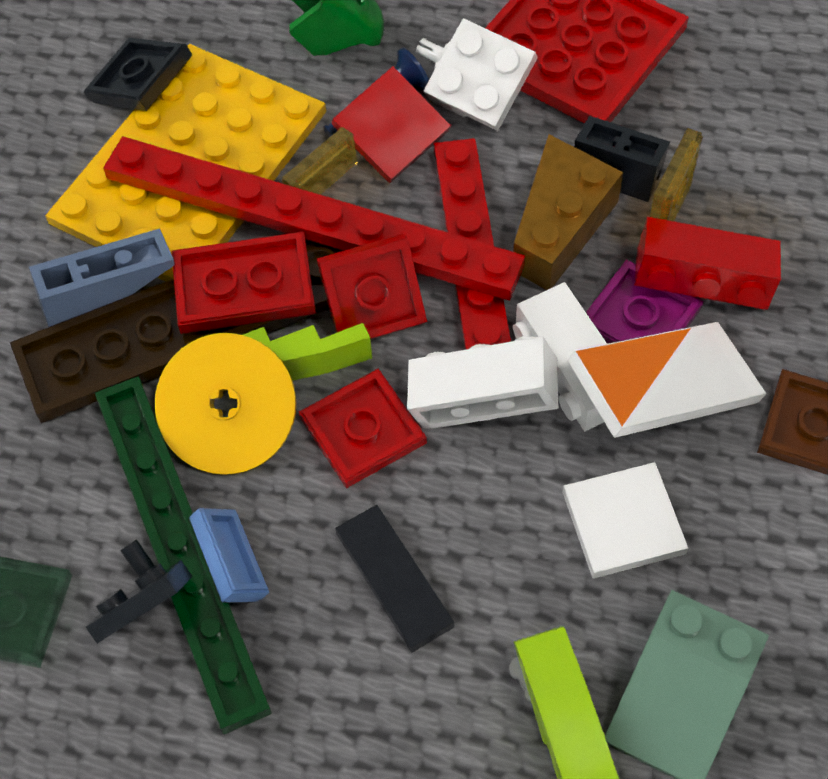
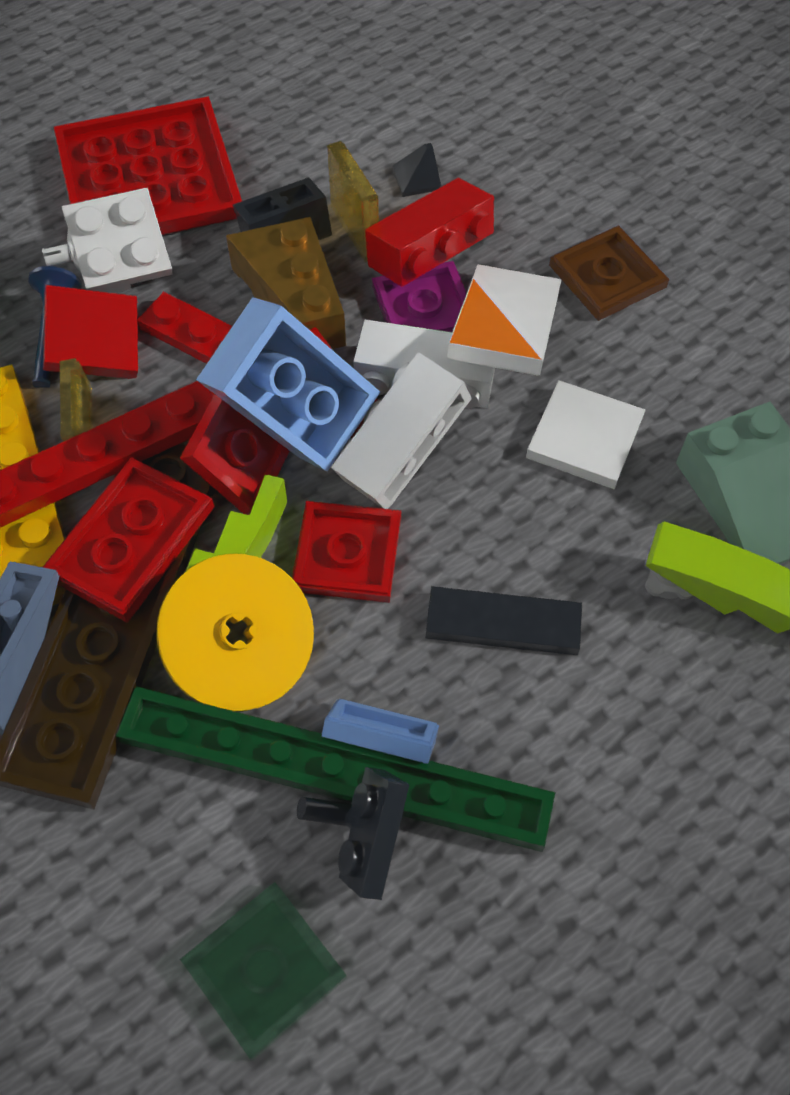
camera: 55 degrees left, 0 degrees up
(430, 276) = (289, 383): none -> light blue brick
(773, 211) = (418, 172): none -> black slope

